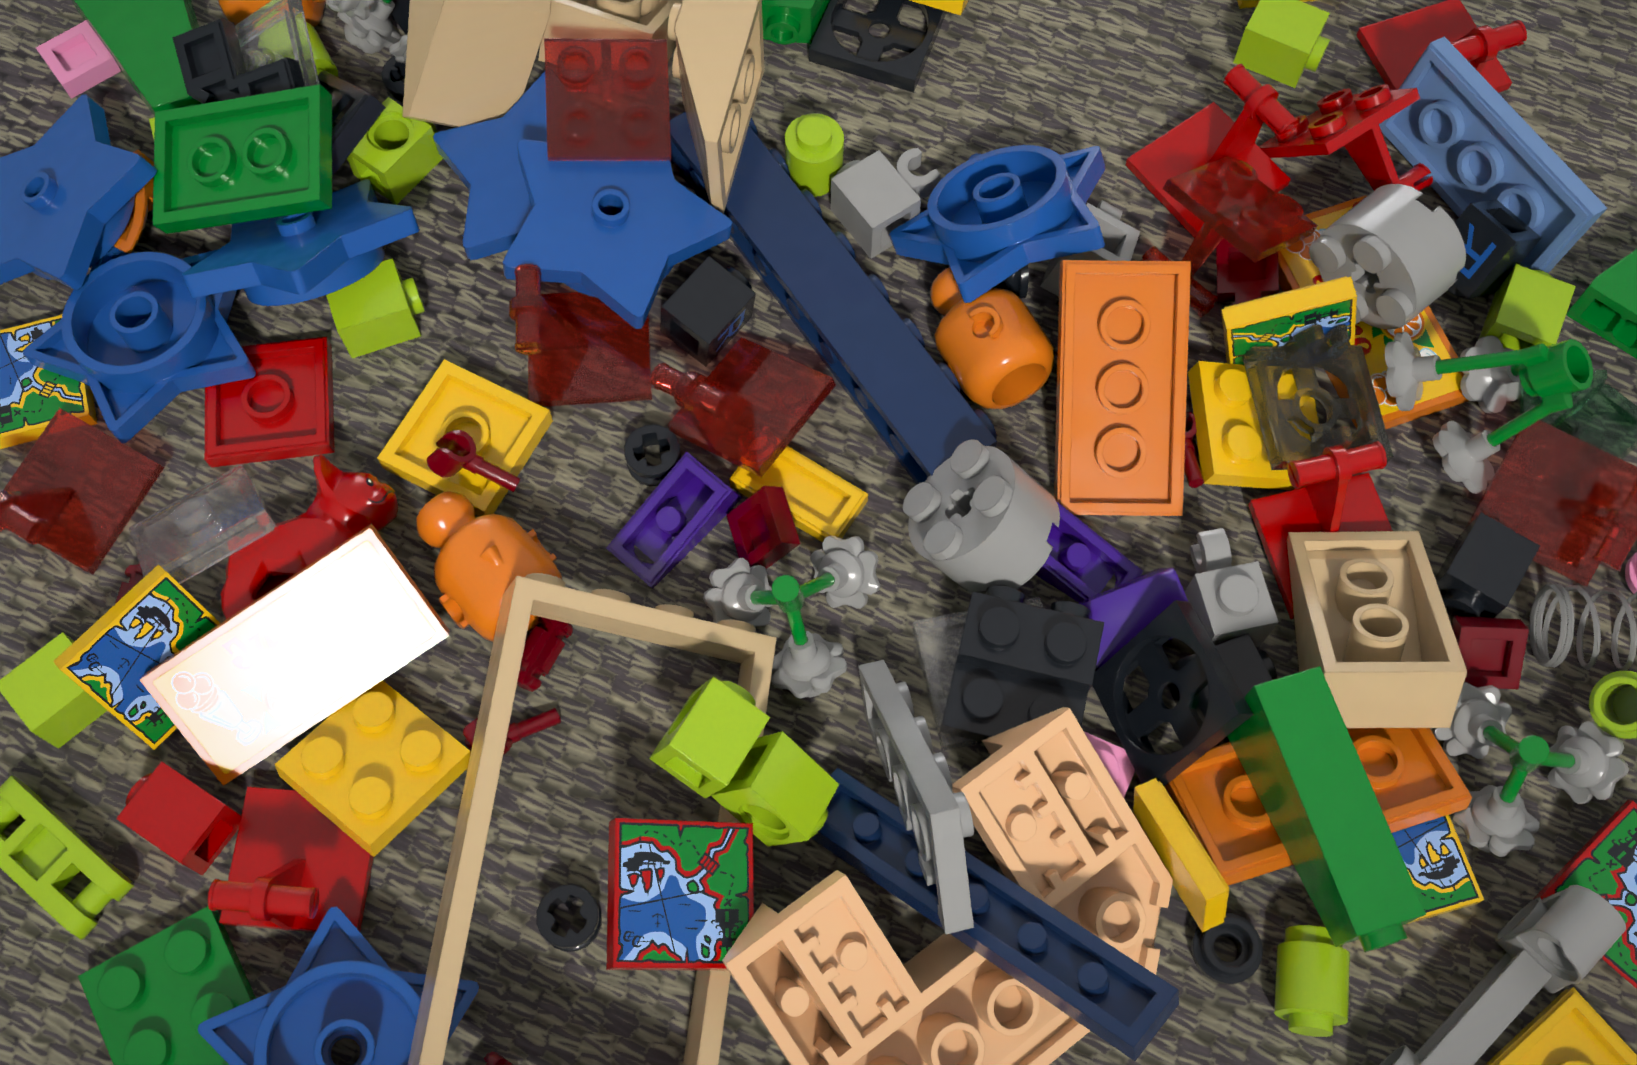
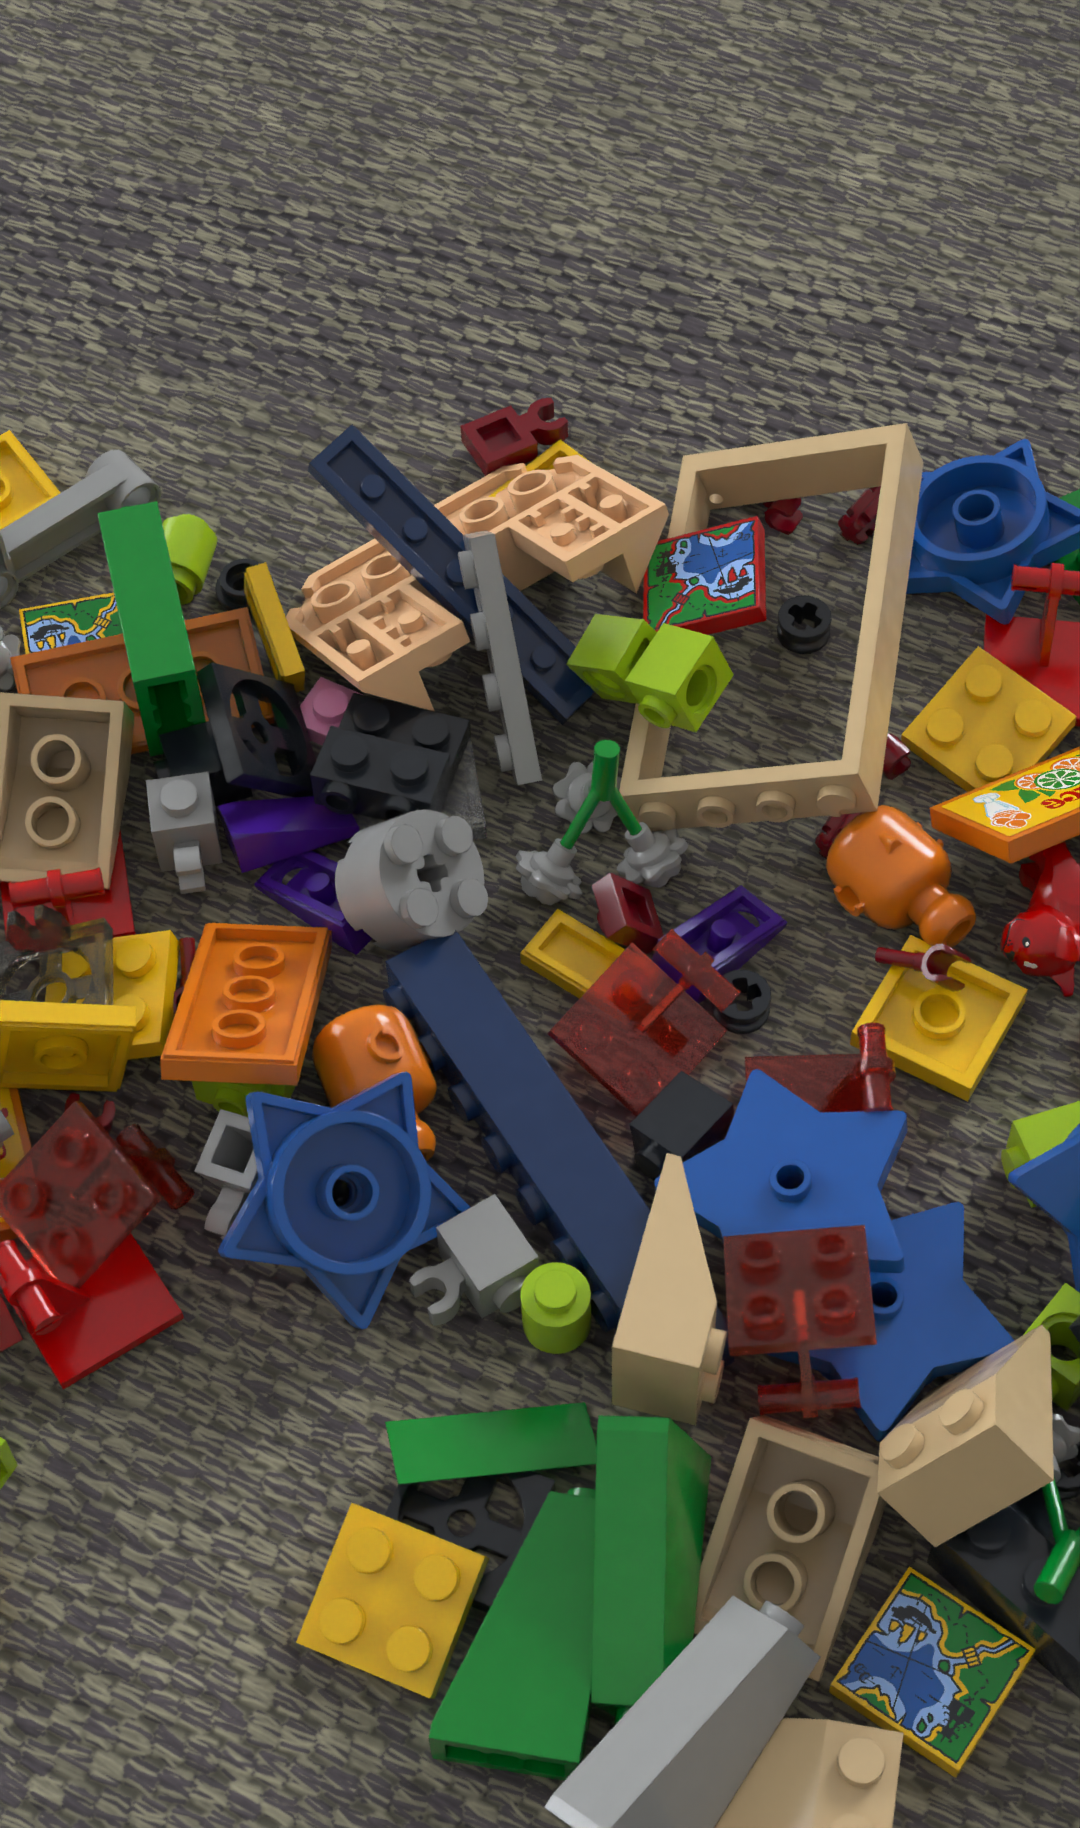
camera: 175 degrees left, 10 degrees down
(860, 70) = (491, 1443): none -> green sticker

